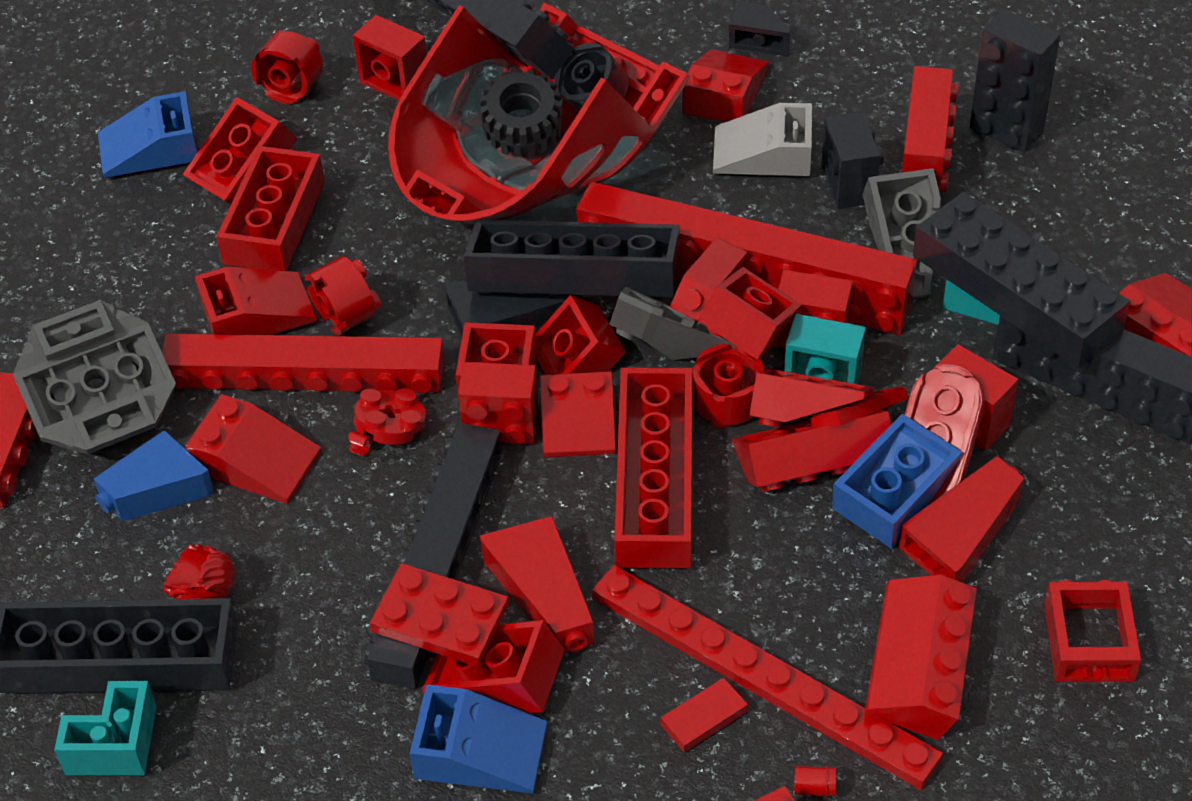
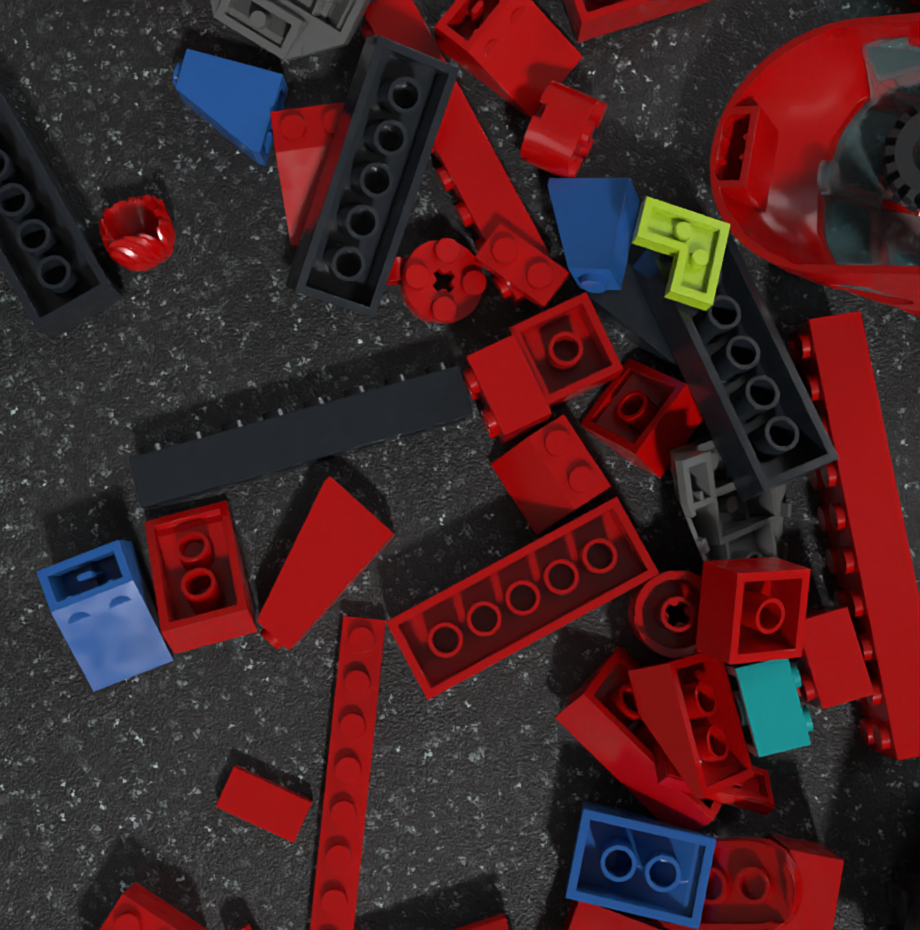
camera: 60 degrees right, 35 degrees up
(287, 402) = (371, 175): none -> black brick
(418, 352) = (521, 266): none -> red plate
(422, 305) = (595, 228): none -> blue slope
(439, 614) = (209, 498): red plate -> none
(480, 228) = (692, 241): none -> lime plate
(703, 277) = (782, 532): red slope -> none

